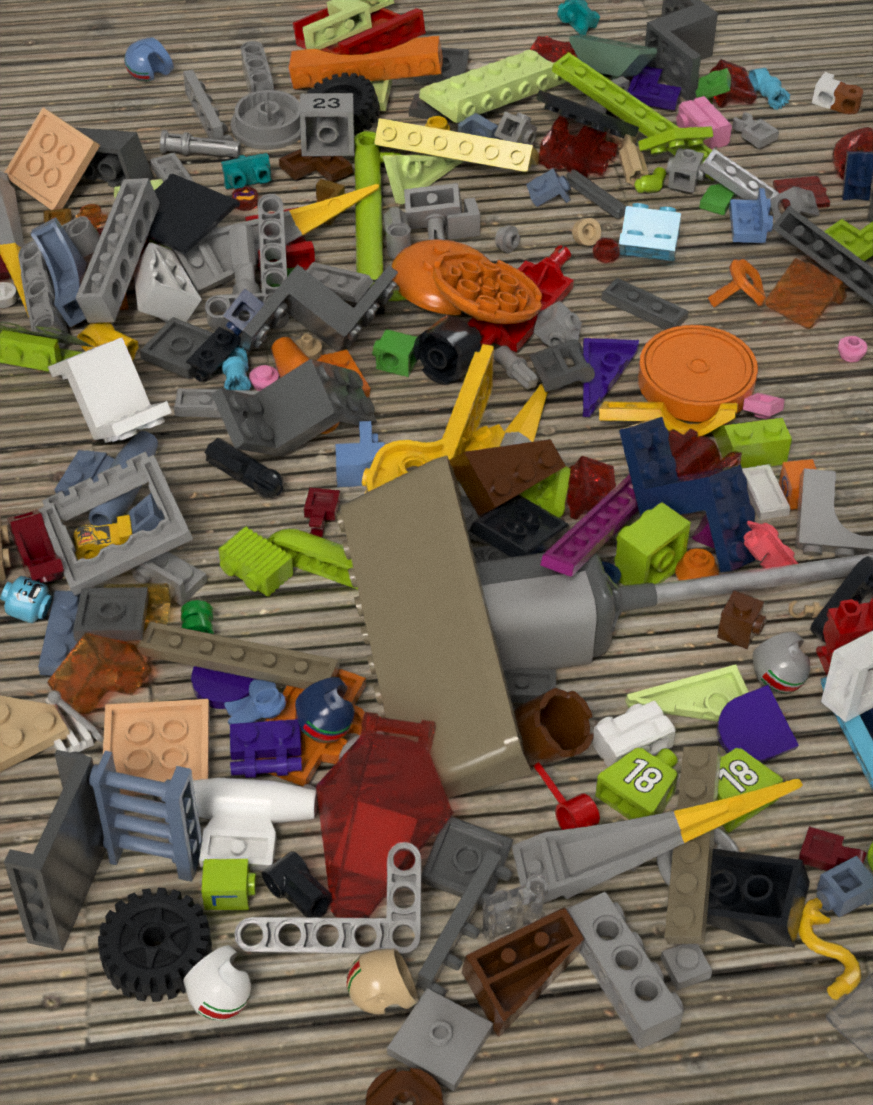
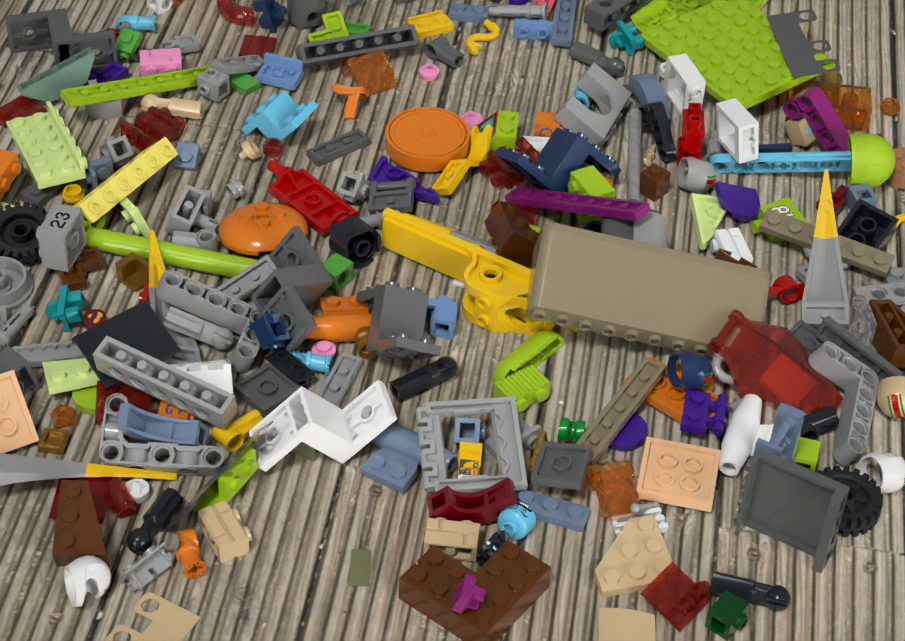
camera: 75 degrees left, 5 degrees down
(263, 702) = (658, 413): medium blue plate -> none
(319, 507) = (479, 346): dark red plate -> none
(486, 289) = (315, 200): orange brick -> none
(586, 115) = (121, 111): black plate -> none
(596, 194) = (207, 135): dark grey axle -> none
(639, 783) = (773, 256): lime torso -> none
(651, 183) = (209, 107): lime arm -> none
(676, 138) = (192, 69): lime plate -> none
(764, 541) = (609, 147): coral hinge -> none
(800, 200) = (281, 44): light grey bracket -> none

